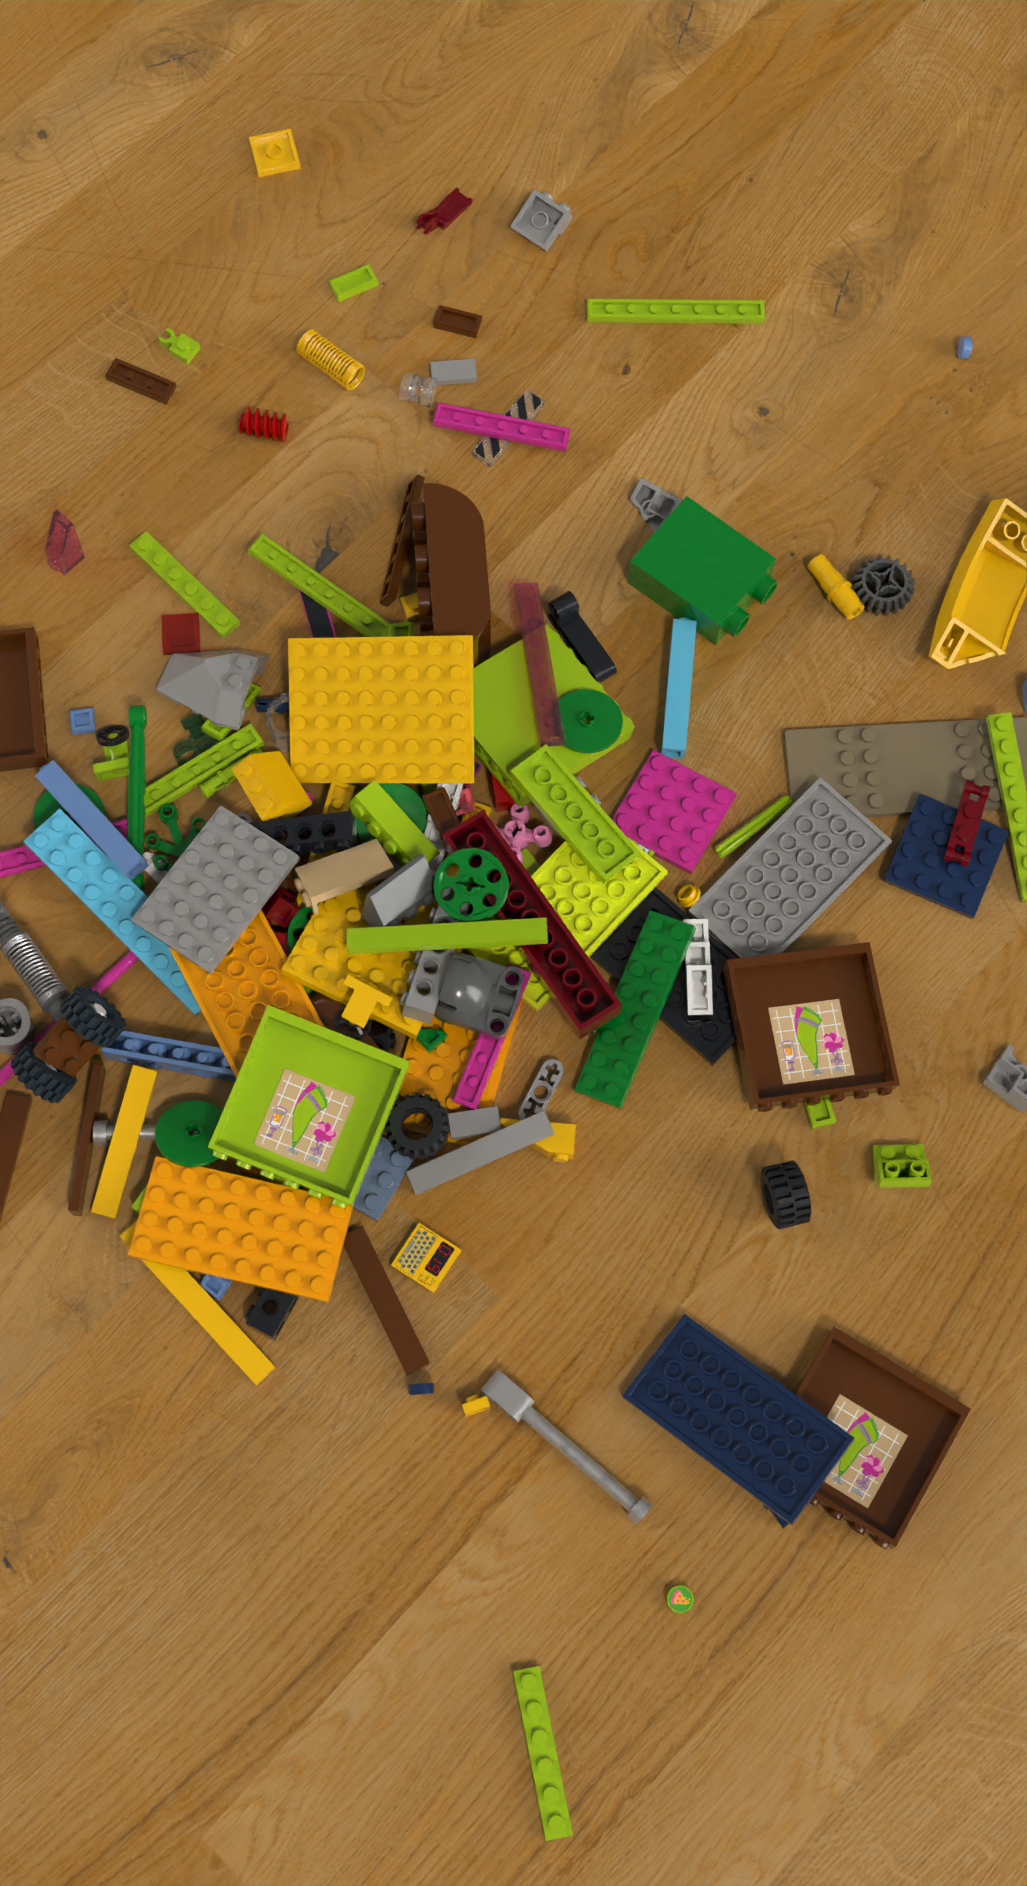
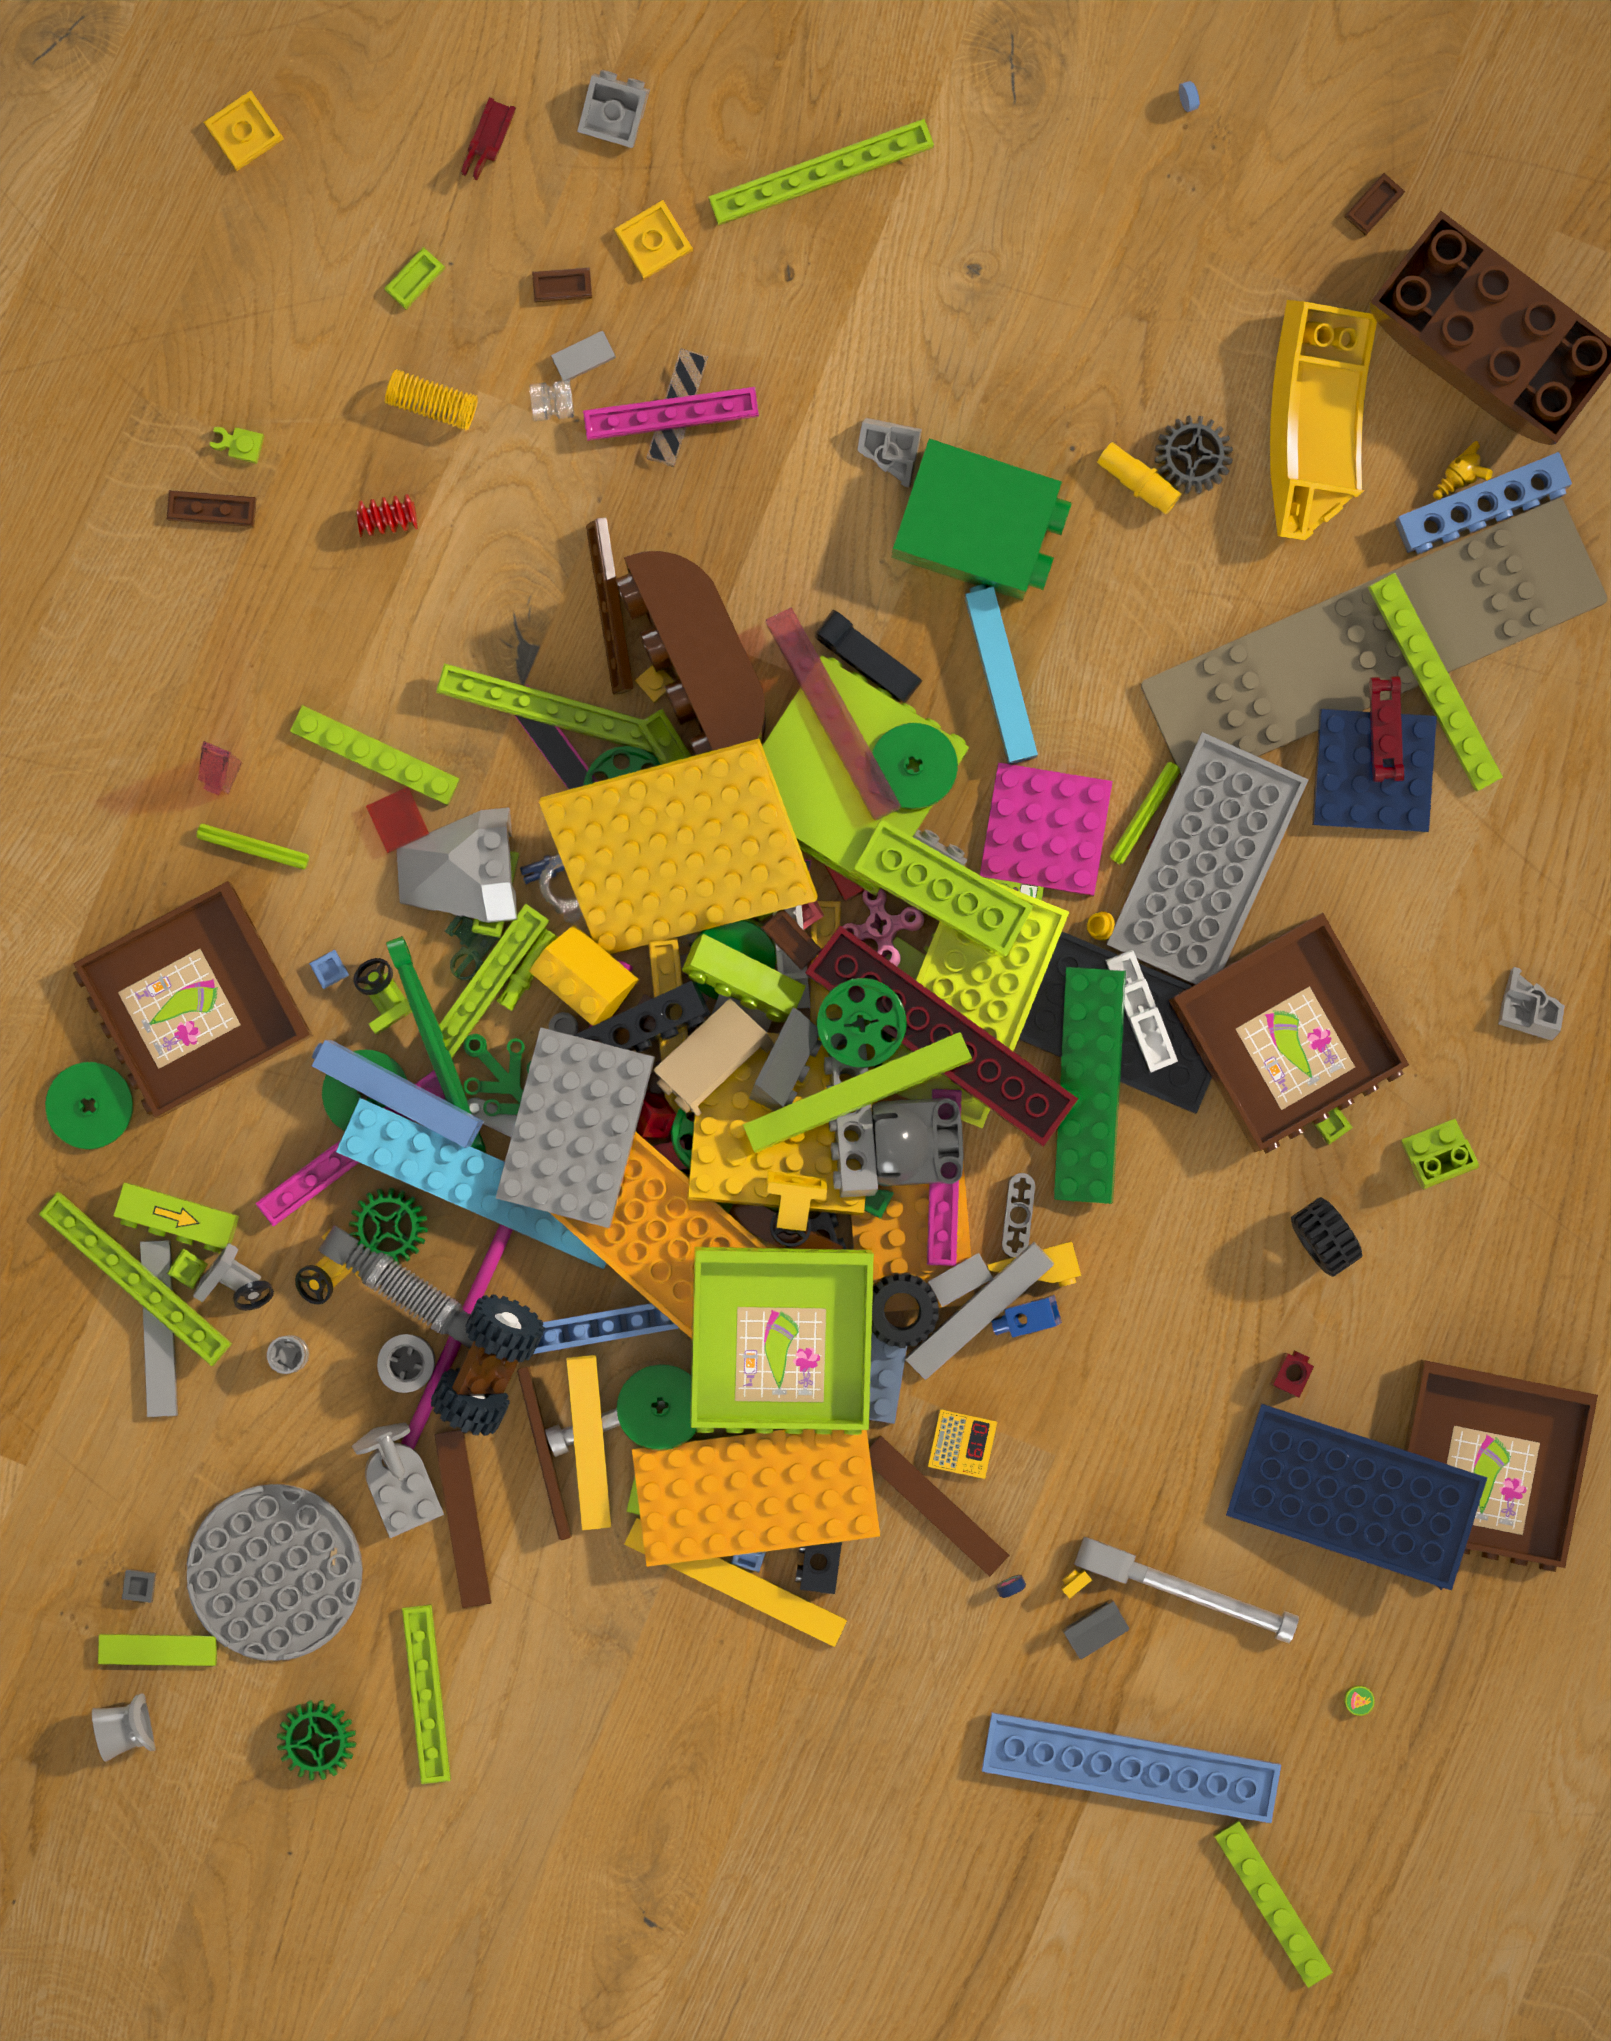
camera: 20 degrees left, 15 degrees up
(62, 911) = (405, 1207): none -> green gear
(65, 615) = (252, 846): none -> lime axle
(465, 1583) = (1131, 1767): none -> medium blue plate
(478, 1452) = (1096, 1629): none -> dark grey panel
(528, 1174) = (1040, 1315): none -> blue torso
(536, 314) = (653, 239): none -> yellow tile
(713, 1309) = (1282, 1382): none -> dark red brick

